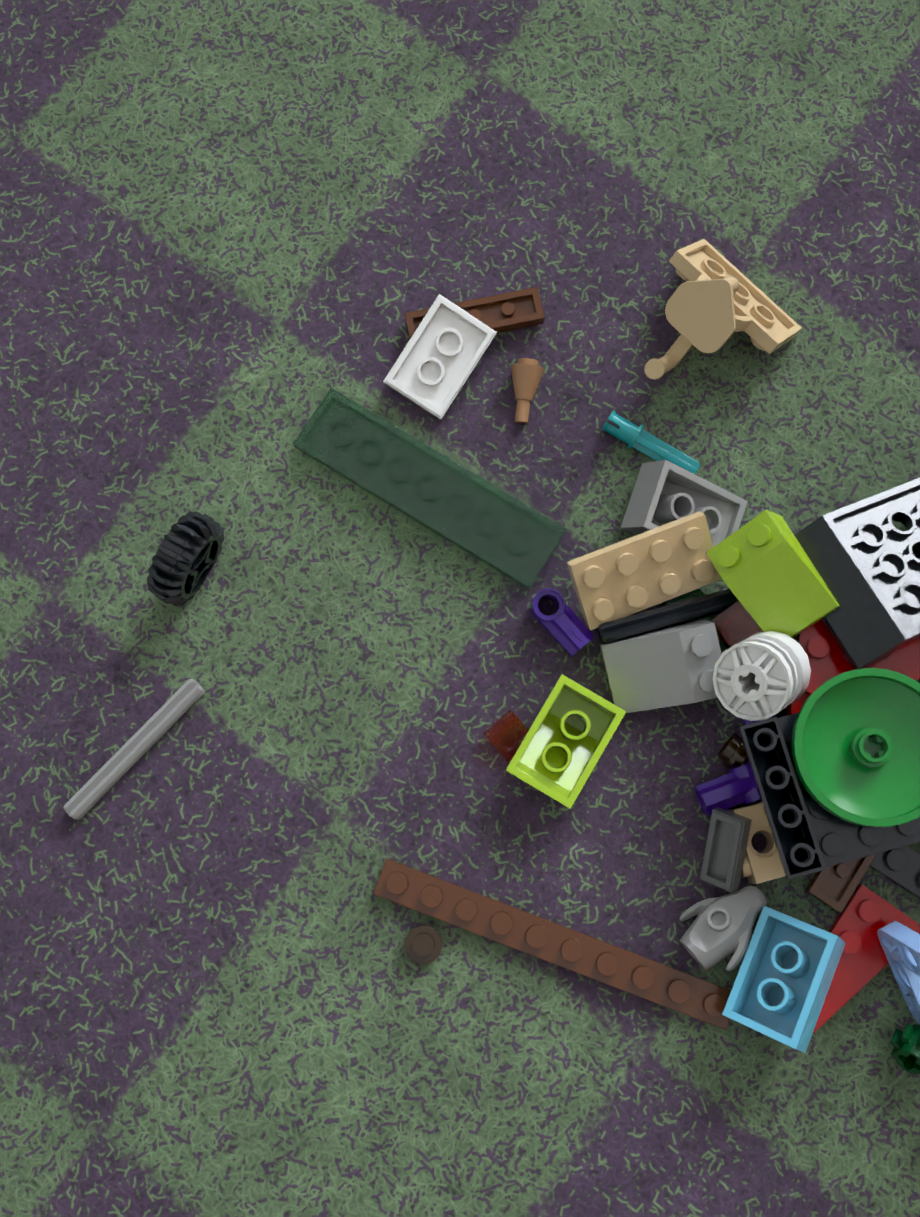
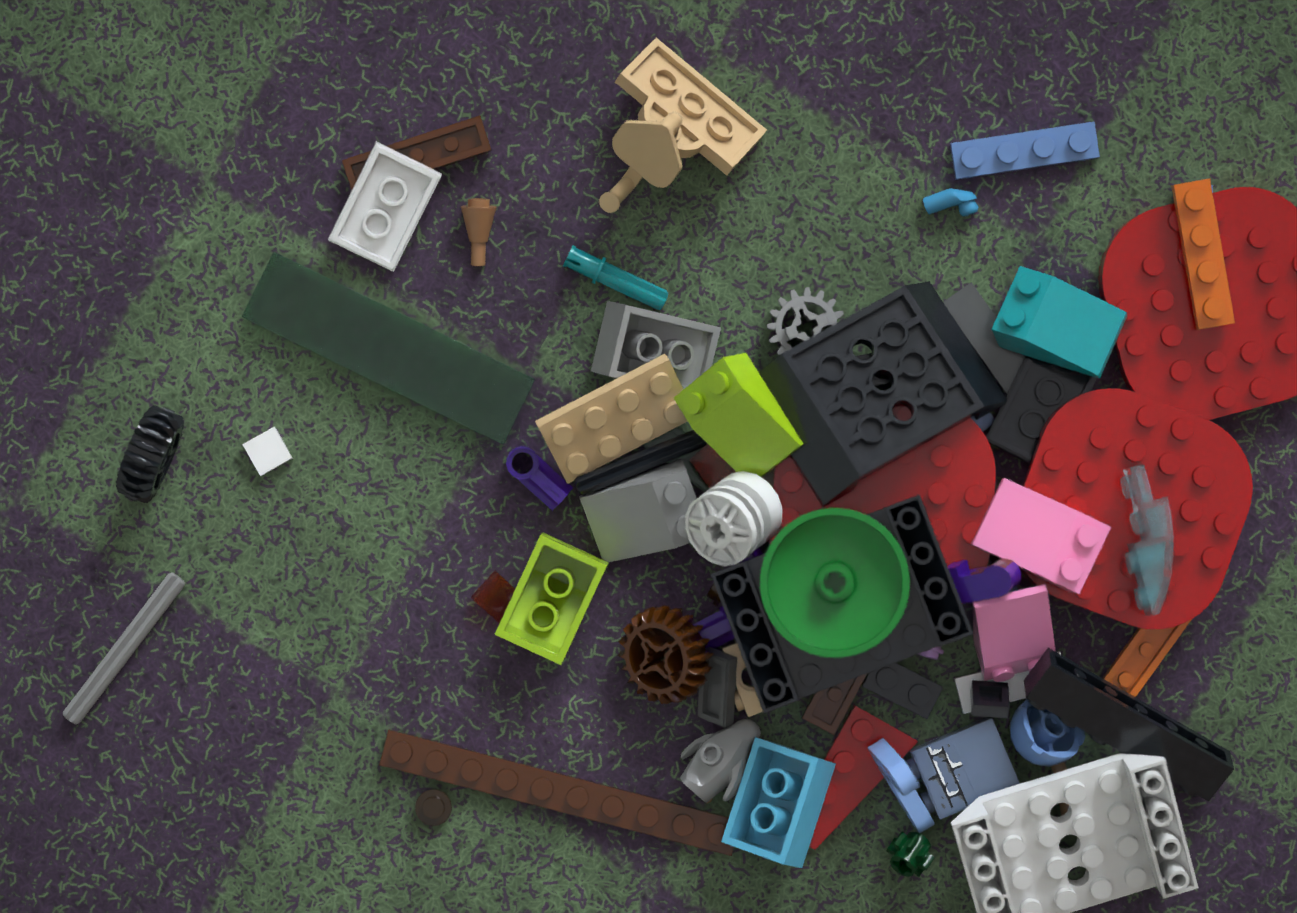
camera: 15 degrees left, 10 degrees up
(301, 573) = (267, 451): none -> white tile
(657, 787) = (683, 663): none -> reddish brown gear
(829, 490) = (797, 304): none -> light grey gear

